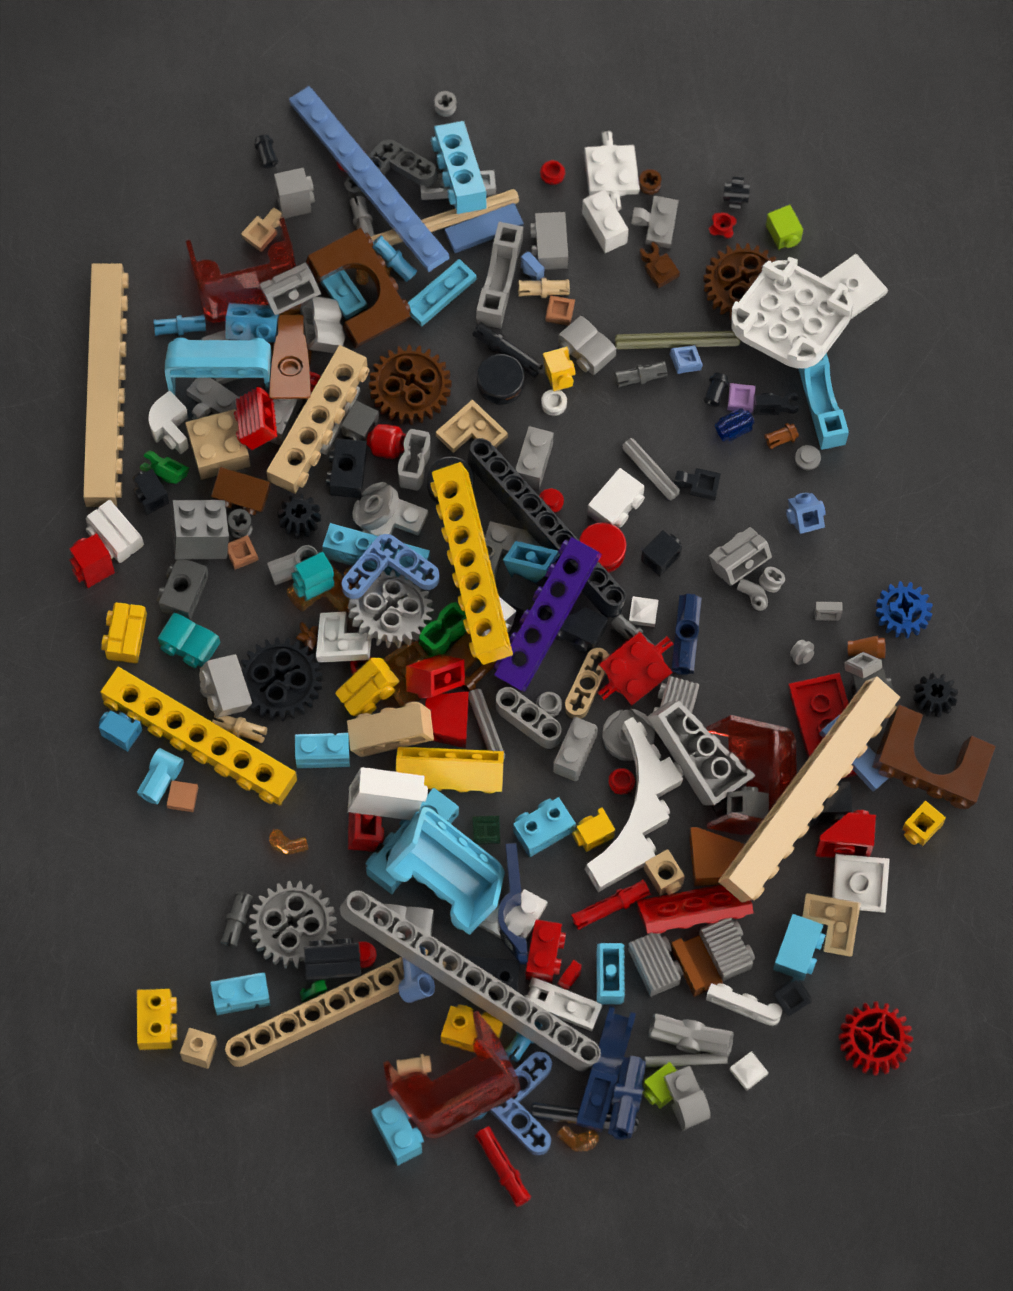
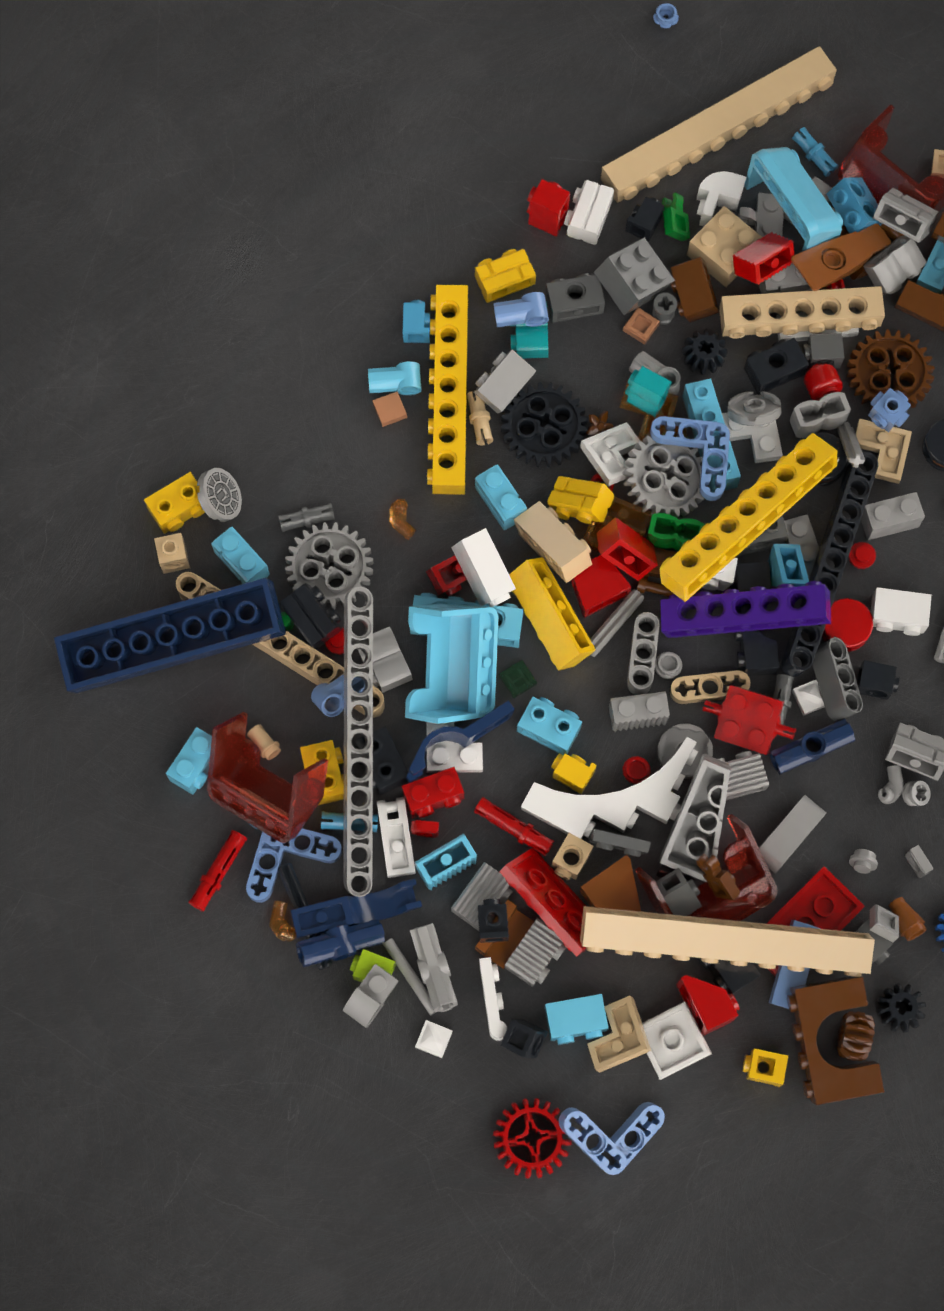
camera: 60 degrees right, 5 degrees up
(173, 977) = (219, 494): none -> light grey tile
(176, 628) = (529, 310): none -> medium blue piece
(279, 1086) = (170, 635): none -> dark blue brick
(444, 410) = (887, 418): none -> medium blue brick
(457, 450) = (851, 444): none -> light grey axle
(646, 581) = (837, 680): none -> dark grey beam
(680, 824) = (610, 840): none -> dark grey plate
(687, 971) = (493, 932): none -> black brick
(746, 690) = (791, 833): none -> light grey beam
(758, 766) = (719, 880): none -> reddish brown plate
(917, 975) = (615, 1145): none -> medium blue beam
(938, 741) = (855, 1036): none -> reddish brown gear

